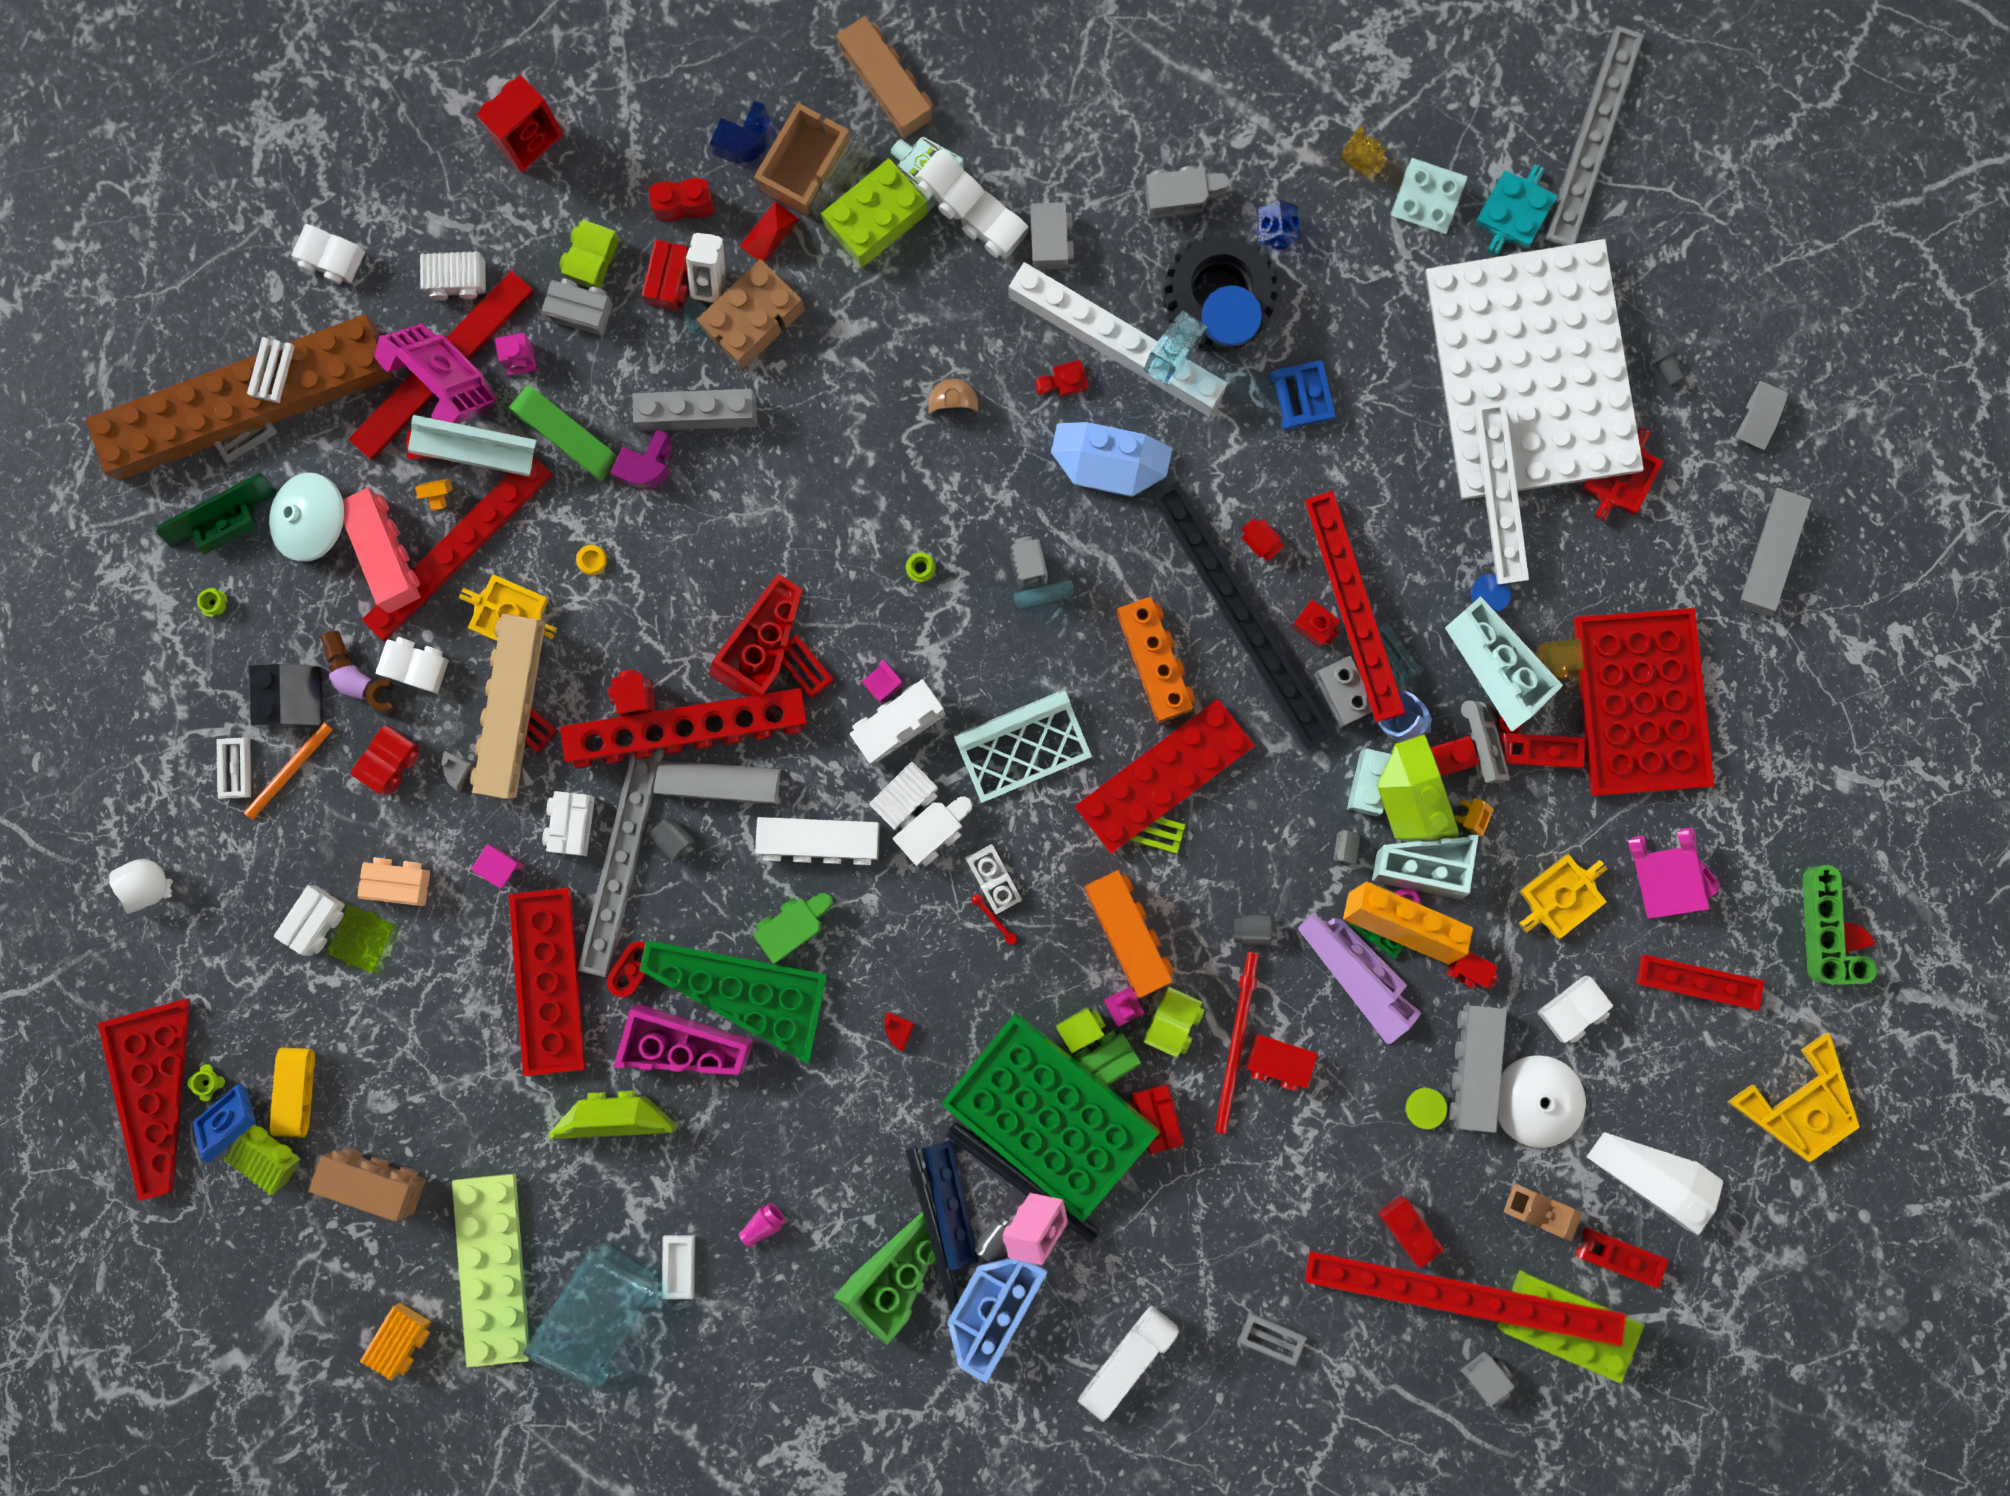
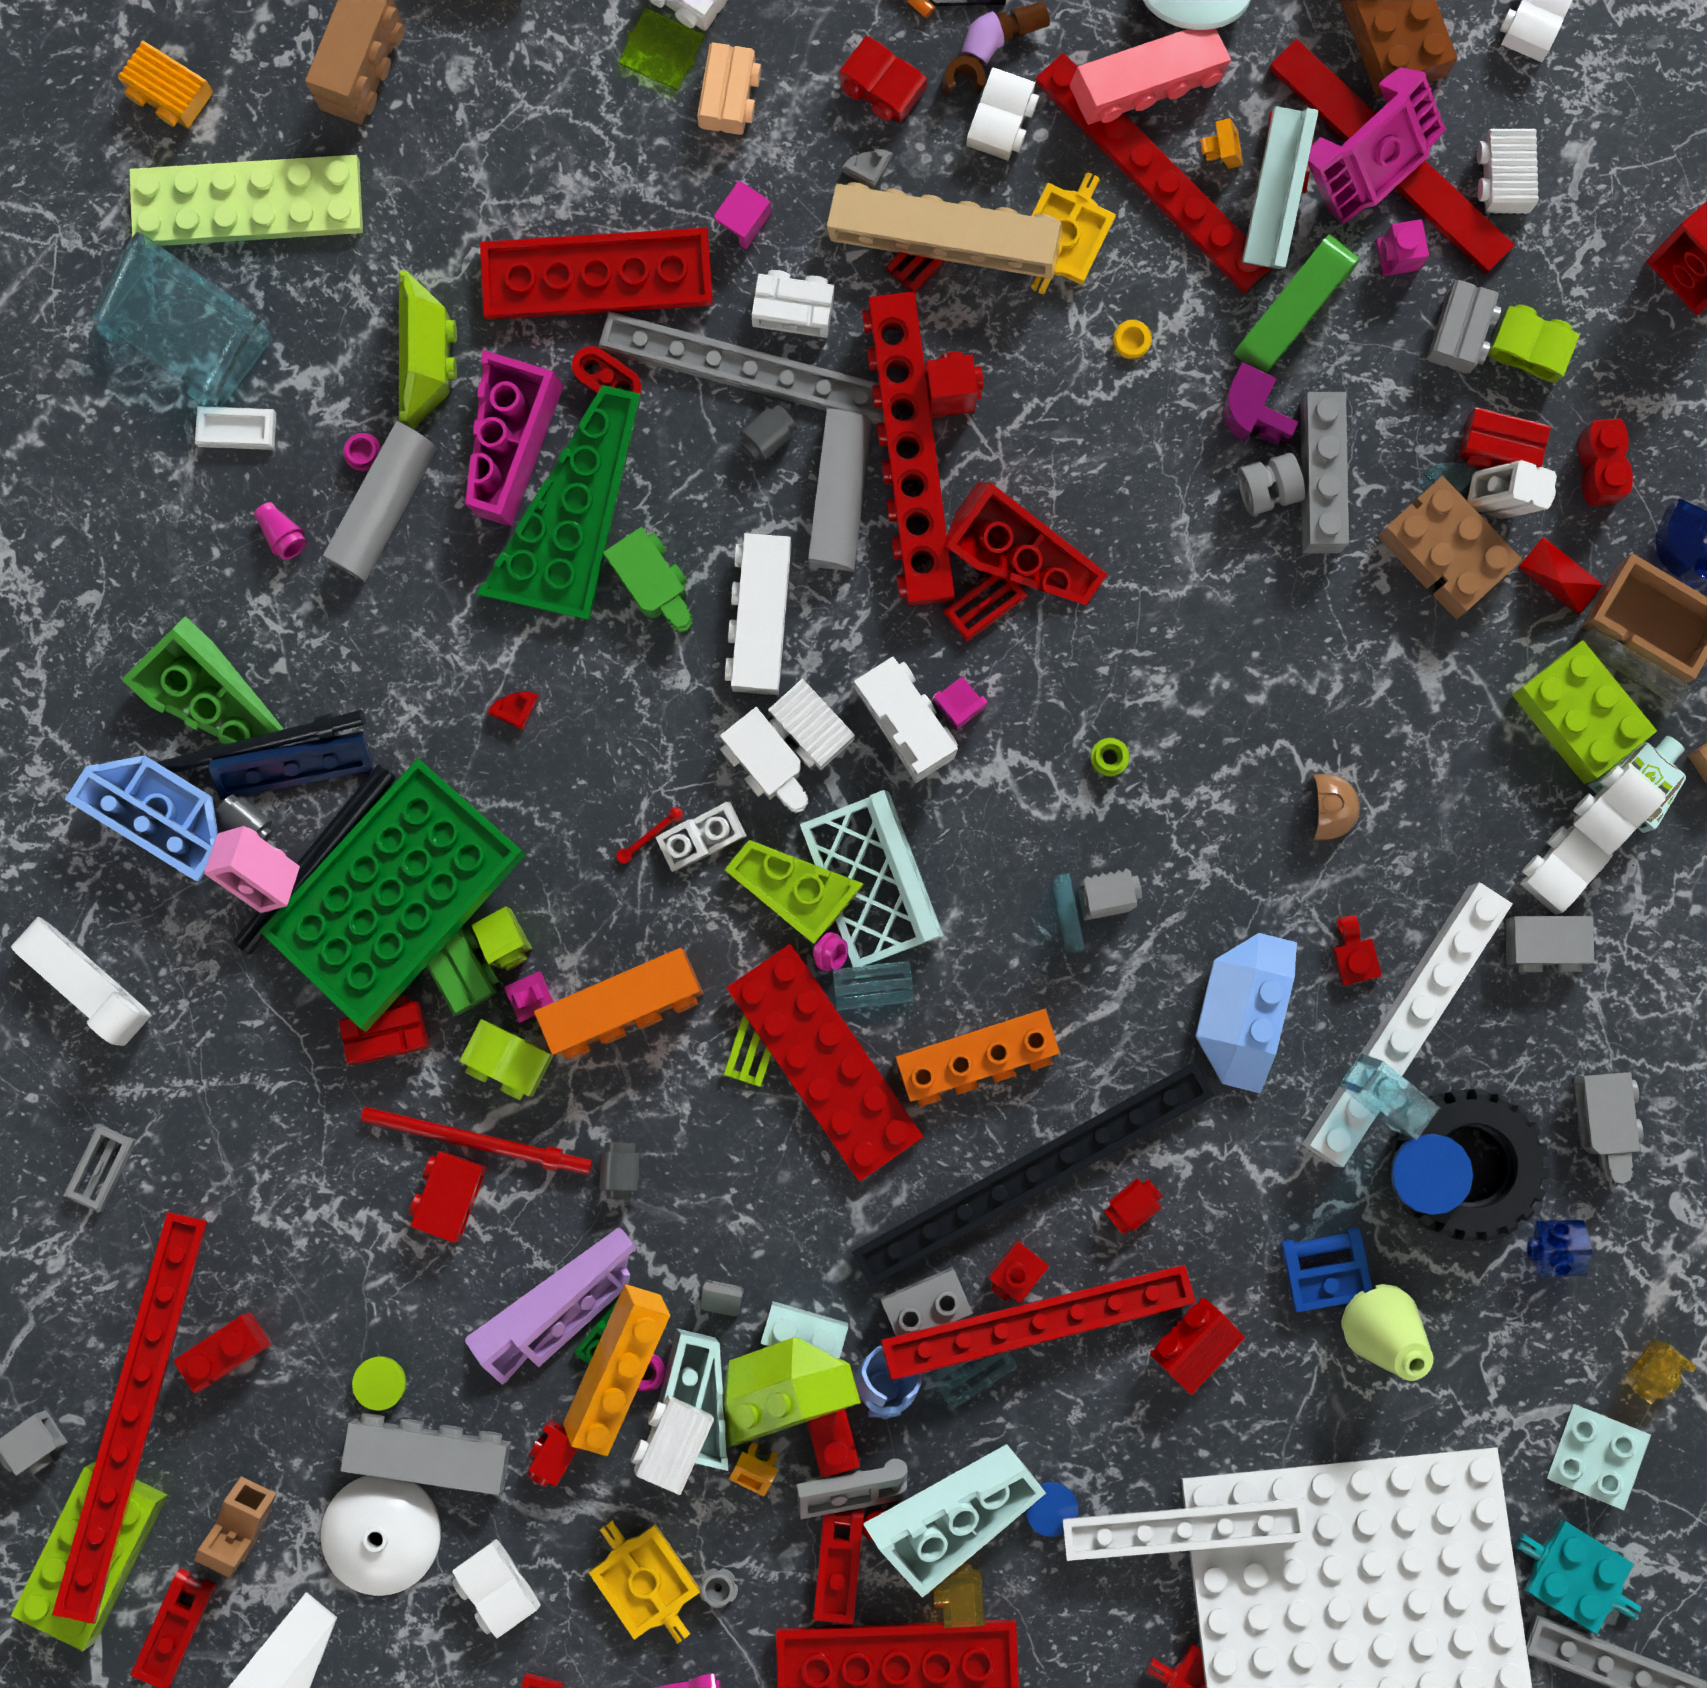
camera: 85 degrees right, 0 degrees up
(695, 1162) = (361, 451): none -> dark pink plate
(703, 445) = (1266, 485): none -> light grey wheel
(736, 1144) = (380, 501): none -> light grey brick
(1031, 805) = (794, 889): none -> lime wing
(1080, 774) = (830, 952): none -> dark pink plate
(1115, 745) = (873, 999): none -> clear light blue tile
(1348, 347) = (1388, 1332): none -> yellowish green cone
(1364, 488) = (1197, 1345): none -> red brick
(1463, 876) = (672, 1444): none -> white brick
(1569, 835) = (715, 1598): none -> light grey plate

